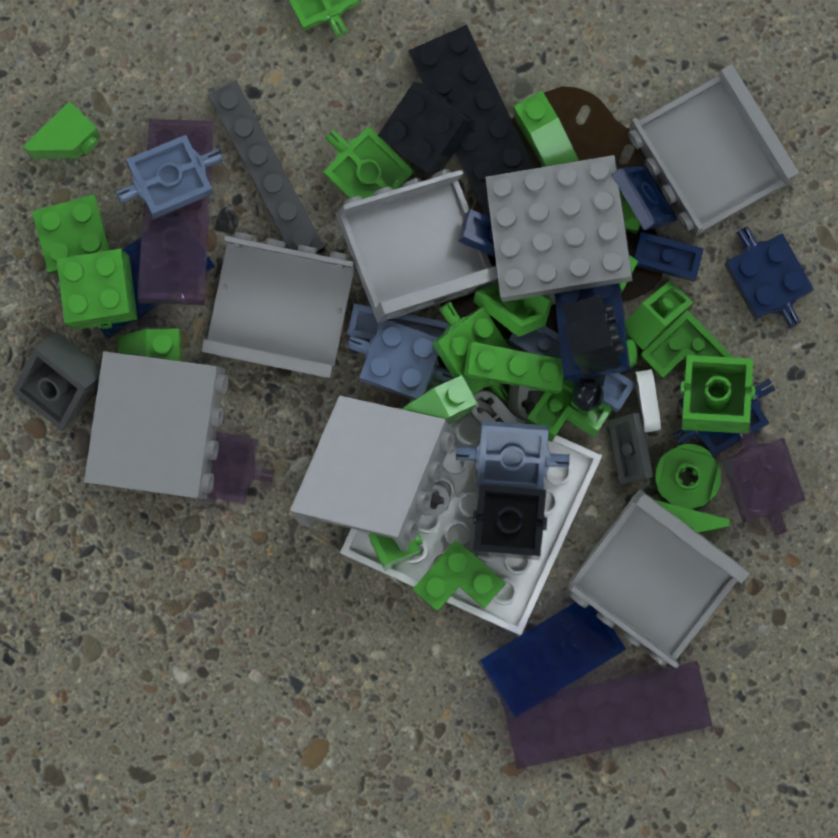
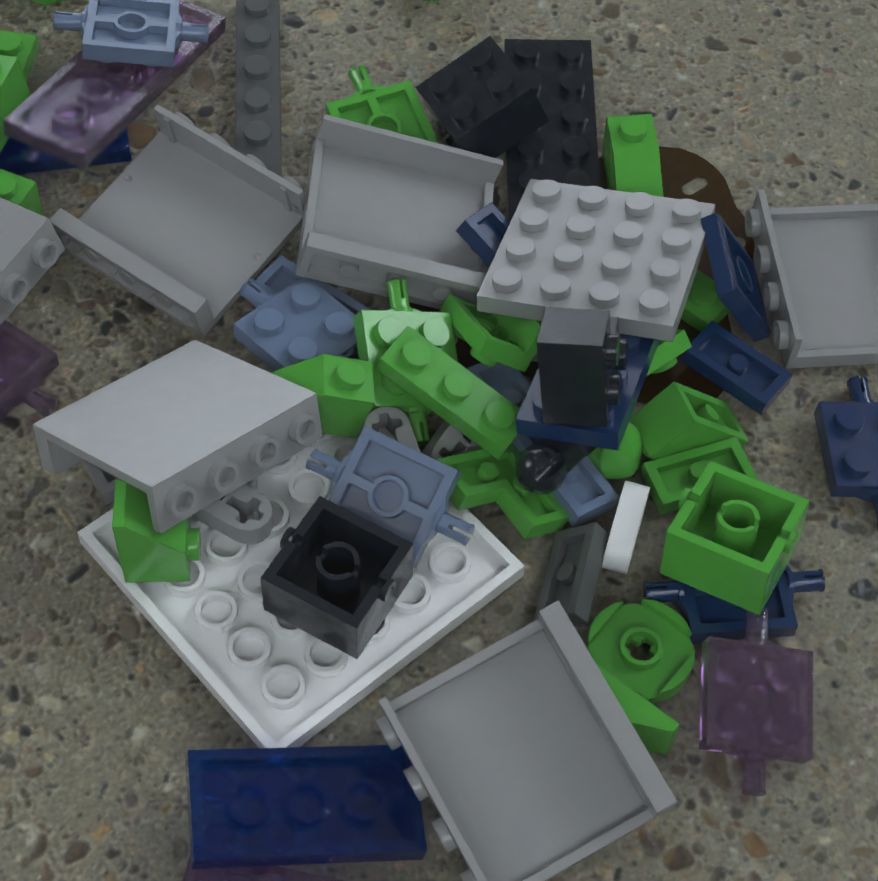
camera: 20 degrees right, 25 degrees down
(455, 570) = (226, 621): bright green plate -> none

